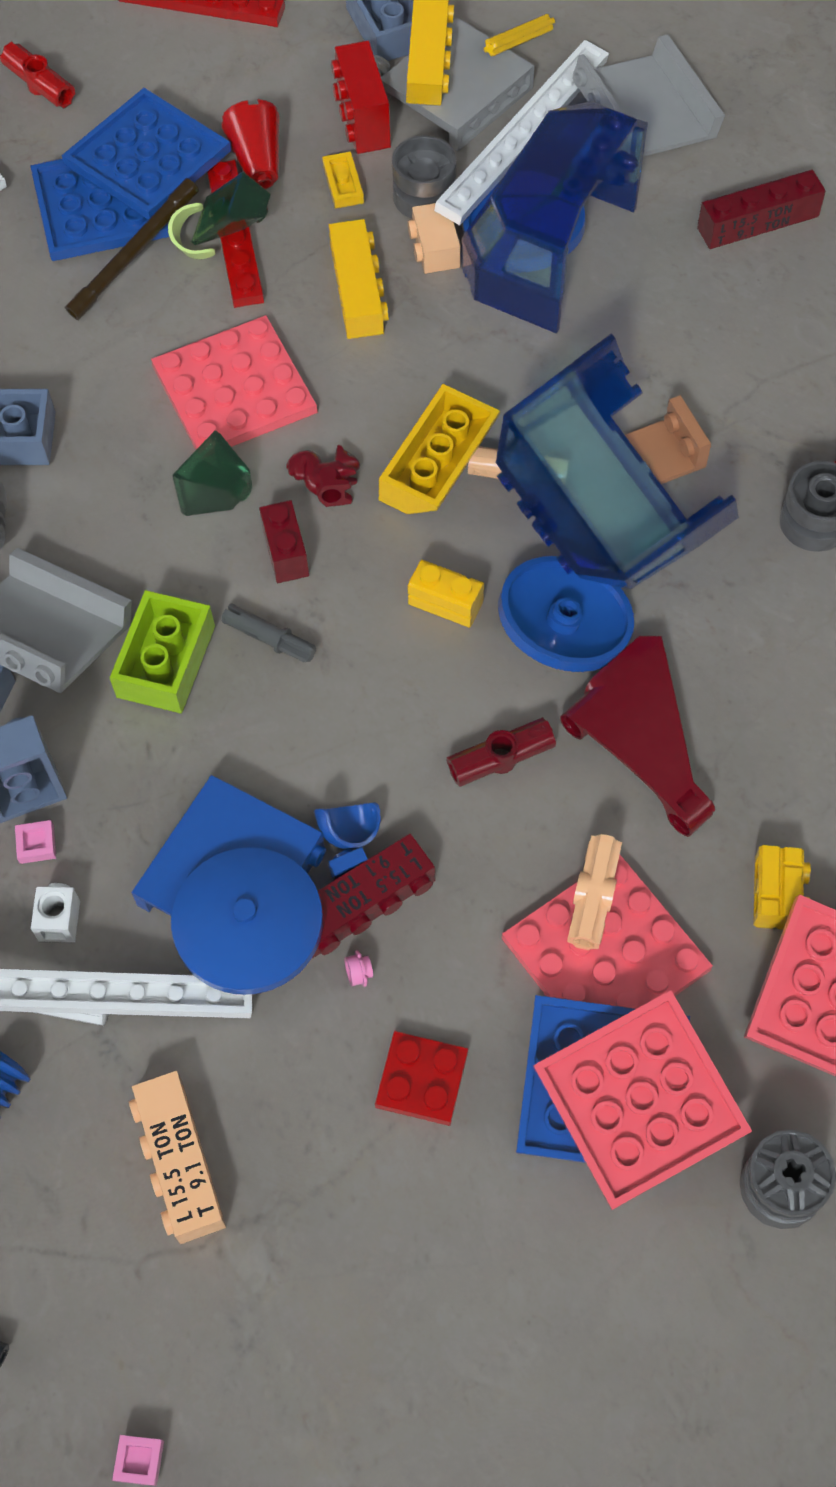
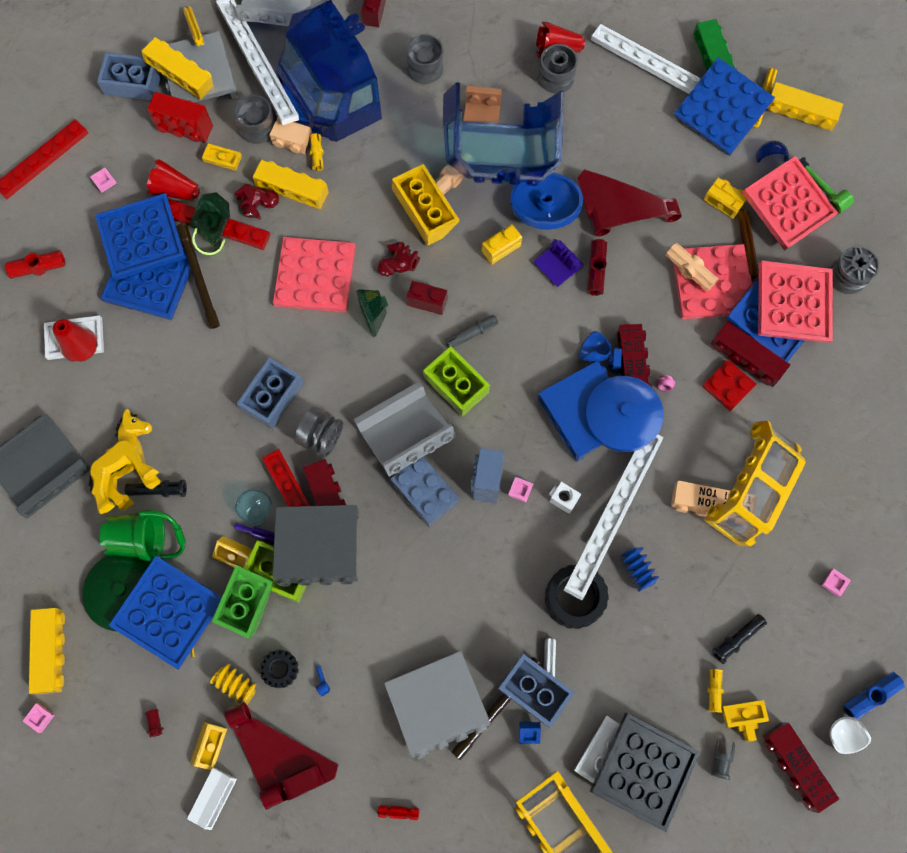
camera: 60 degrees left, 10 degrees up
(212, 75) = (103, 180): none -> bright pink plate
(243, 1208) = (760, 487): none -> windscreen
(305, 248) = (253, 197): none -> dark red animal
(433, 281) = (316, 152): none -> yellow pin
(474, 694) = (558, 263): none -> dark purple hinge
(498, 1081) = (750, 354): none -> dark red brick
(689, 322) = (425, 58): none -> flat silver wheel
(727, 966) = (747, 240): none -> reddish brown axle

